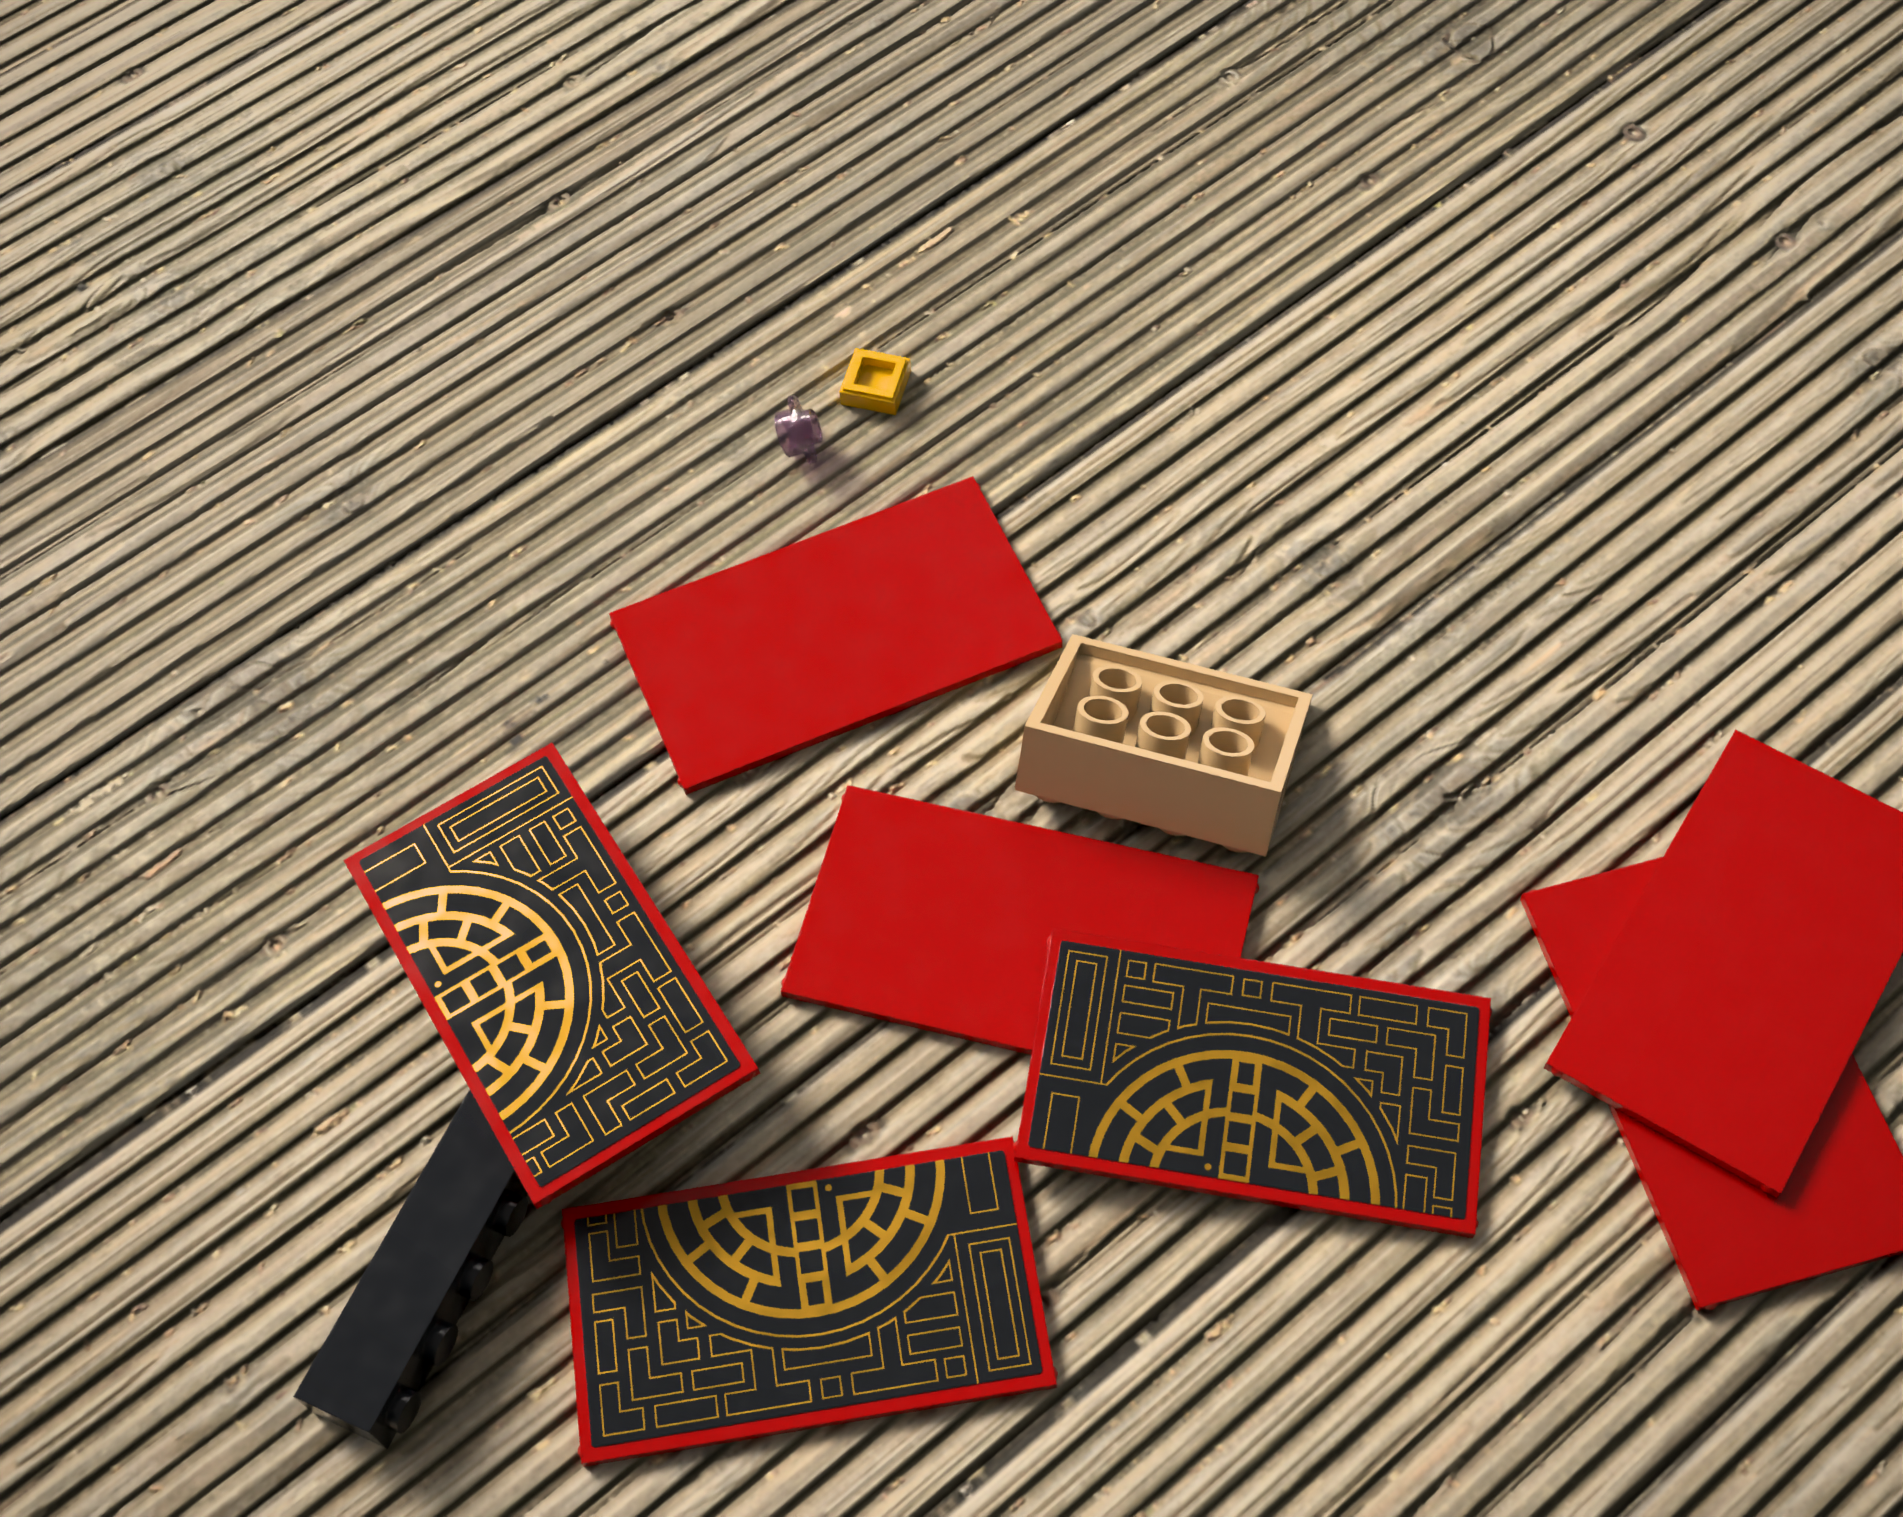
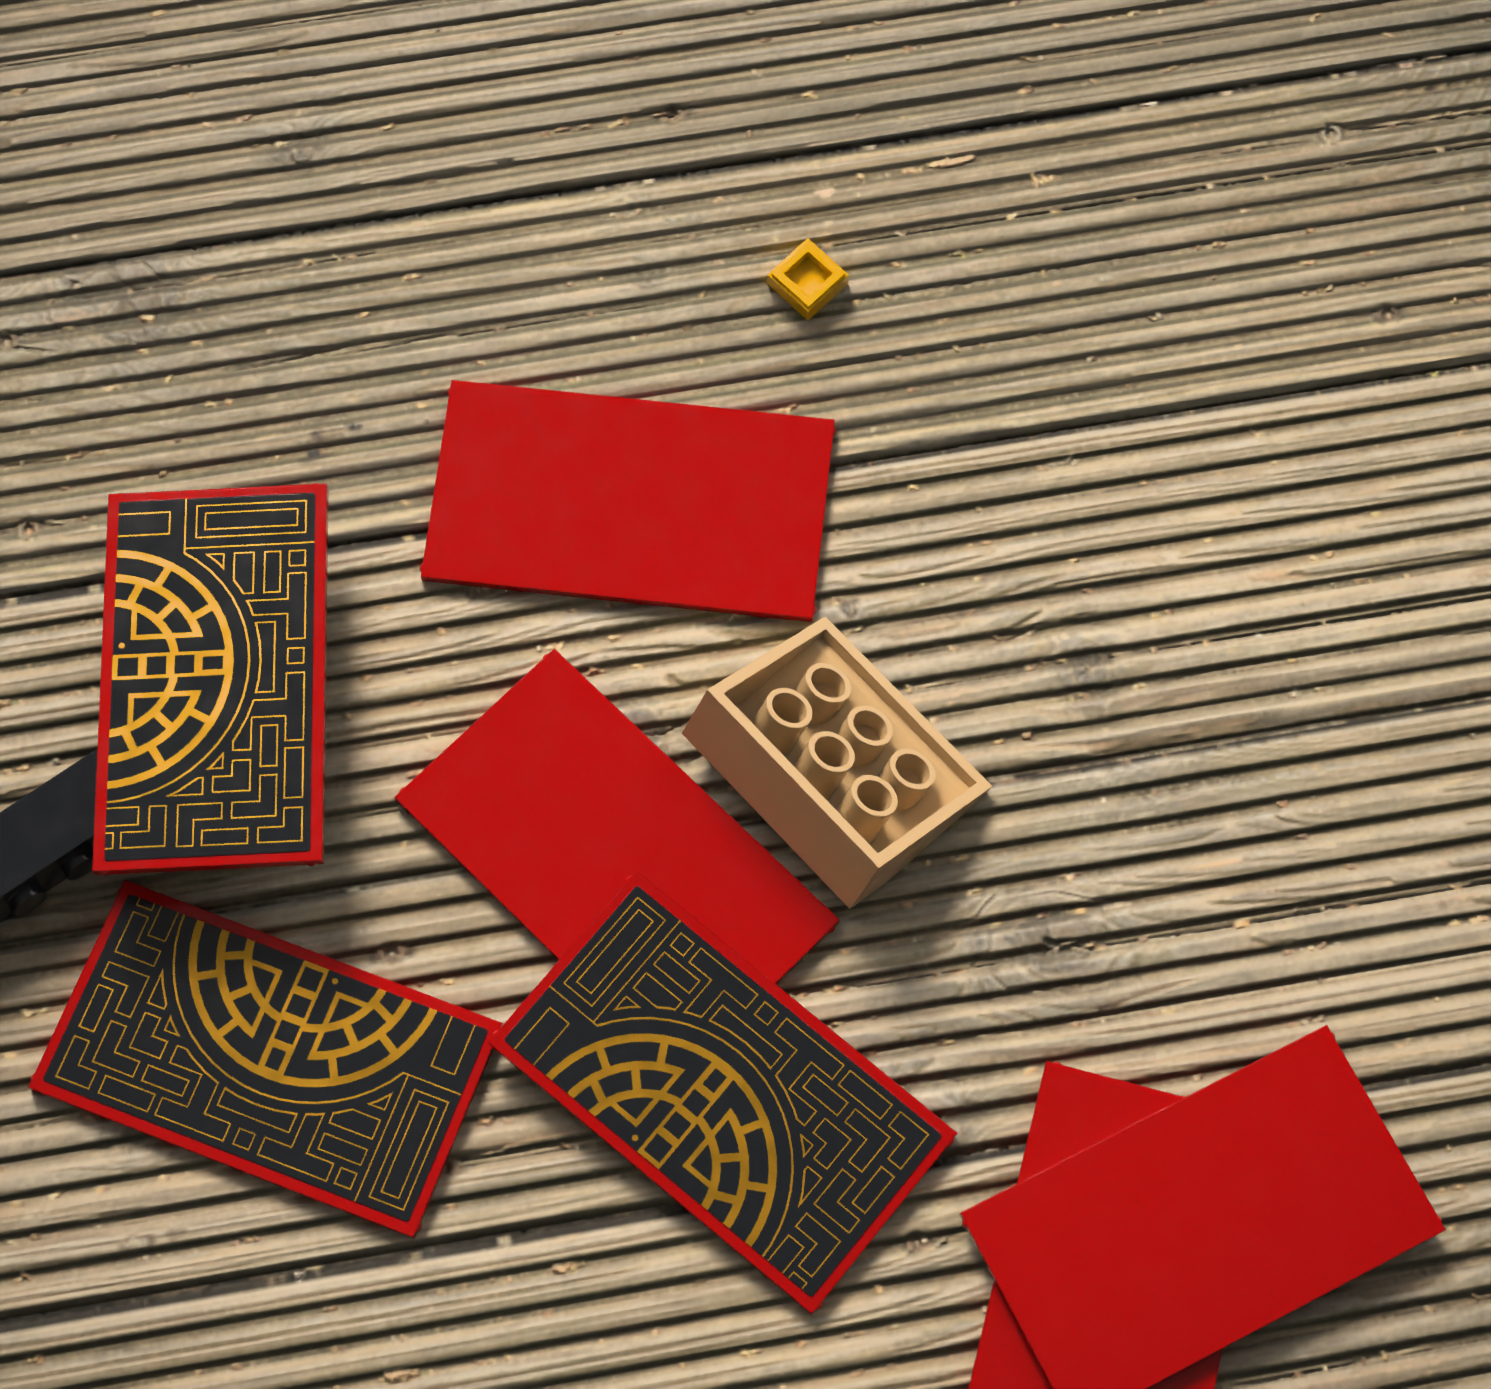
camera: 25 degrees right, 10 degrees up
(798, 430) = (707, 294): plate -> none

